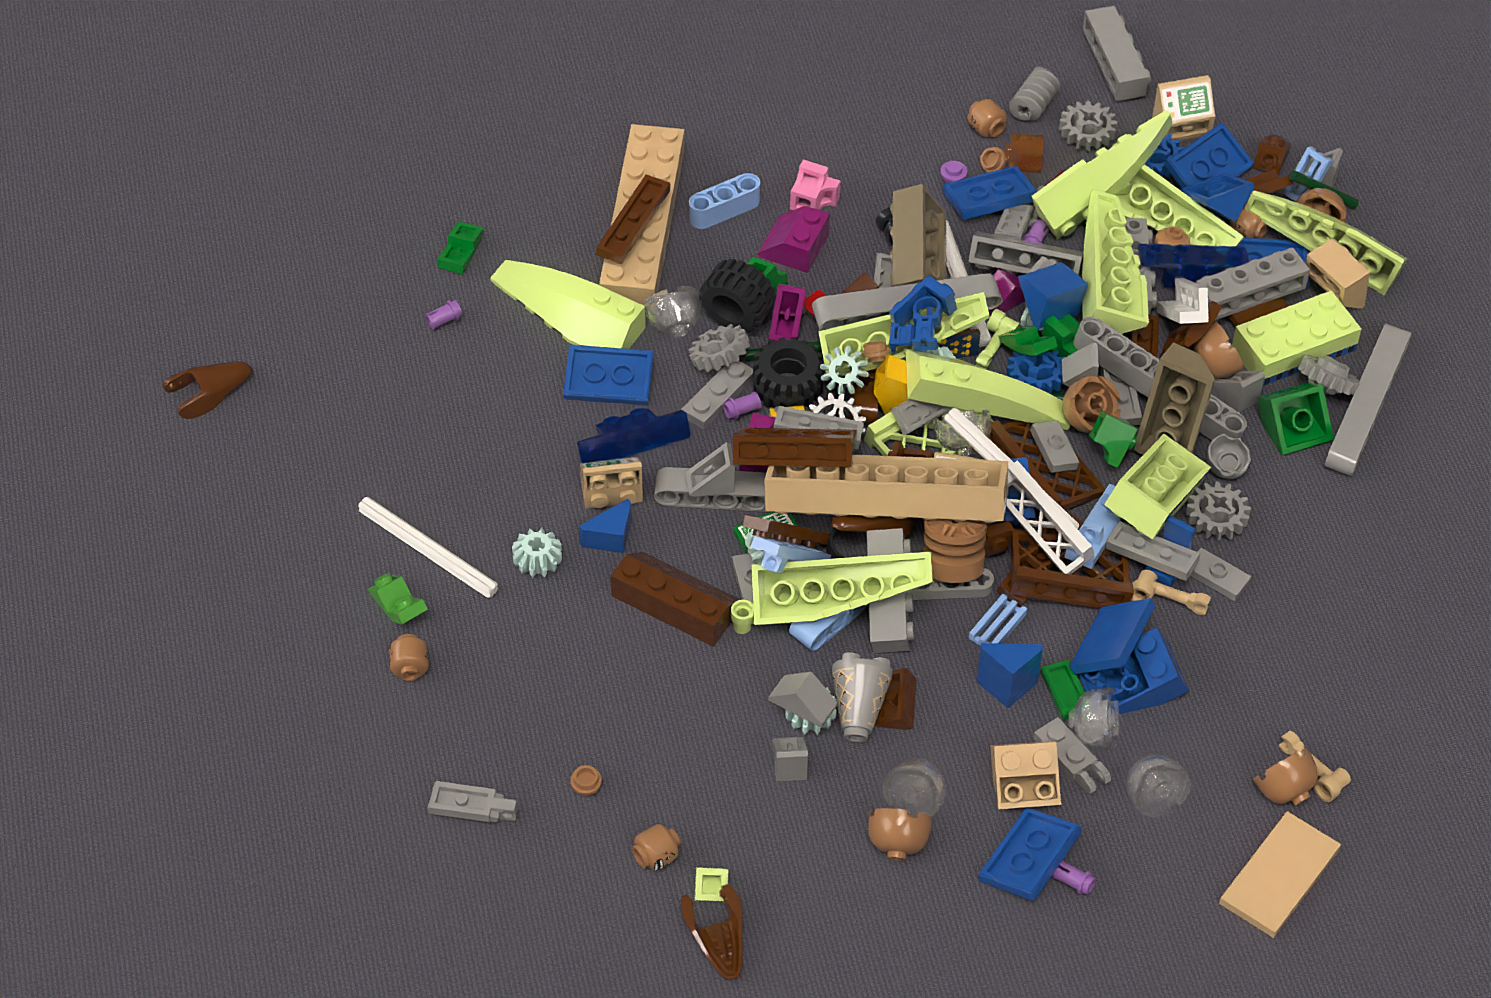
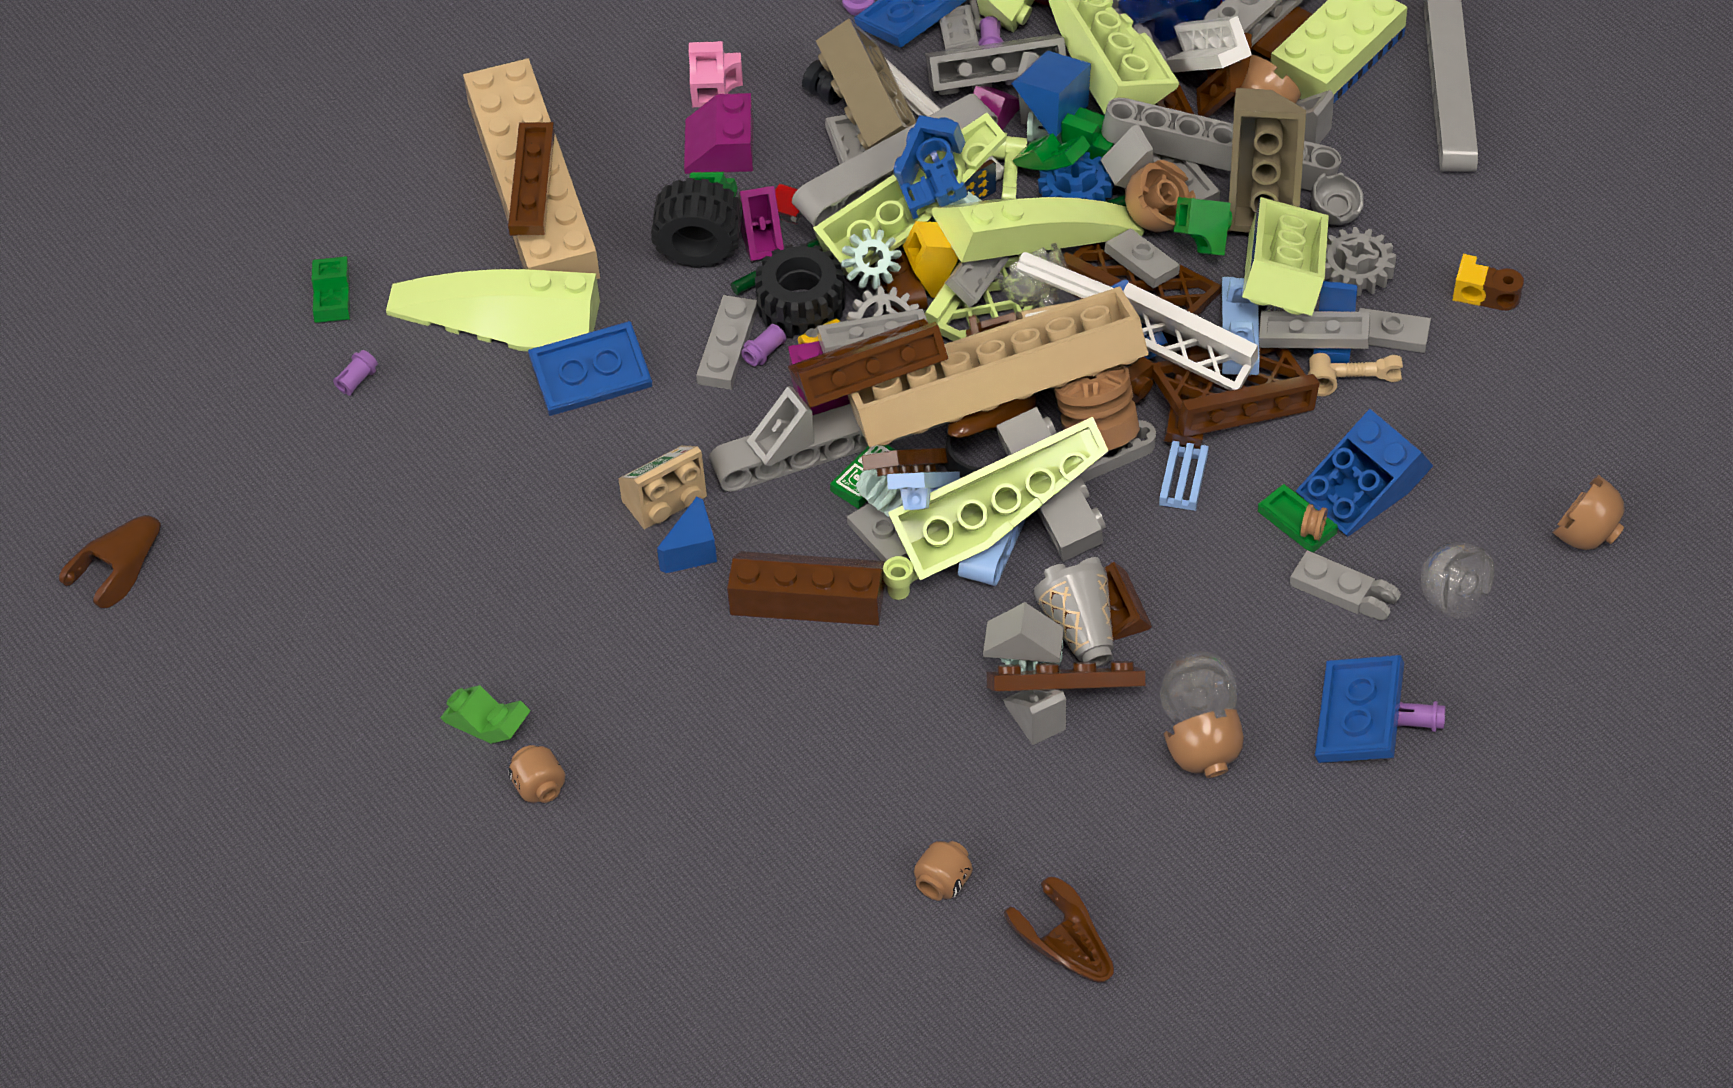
camera: 20 degrees left, 0 degrees up
(428, 547) = (486, 642): white axle -> none
(470, 803) = (702, 907): light grey hinge -> none
(537, 552) = (621, 598): light aqua gear -> none
(586, 780) = (820, 829): medium nougat plate -> none
(633, 434) = (656, 424): clear blue bracket -> none
(673, 312) = (630, 269): clear cylinder -> none
(709, 883) = (1024, 885): yellowish green slope -> none
(719, 347) = (704, 290): light grey gear -> none
(724, 201) = (615, 124): light blue beam -> none
(833, 744) = (1050, 677): none -> reddish brown plate
(862, 283) = (829, 159): reddish brown slope -> none
(875, 351) = (897, 223): medium nougat plate -> none
(1008, 669) = (1228, 519): blue slope -> none
(1026, 774) = (1308, 624): tan slope -> none
(1069, 696) = (1314, 522): none -> medium nougat bush
(1096, 718) = (1351, 534): clear cylinder -> none
(1112, 636) = (1322, 438): blue tile -> none
(1280, 874) = (1634, 623): tan tile -> none
(1296, 417) = (1384, 128): green slope -> none
(1309, 568) = (1487, 285): none -> leg
(1330, 374) = (1397, 69): light grey gear -> none
(1331, 782) = (1636, 503): tan brick -> none

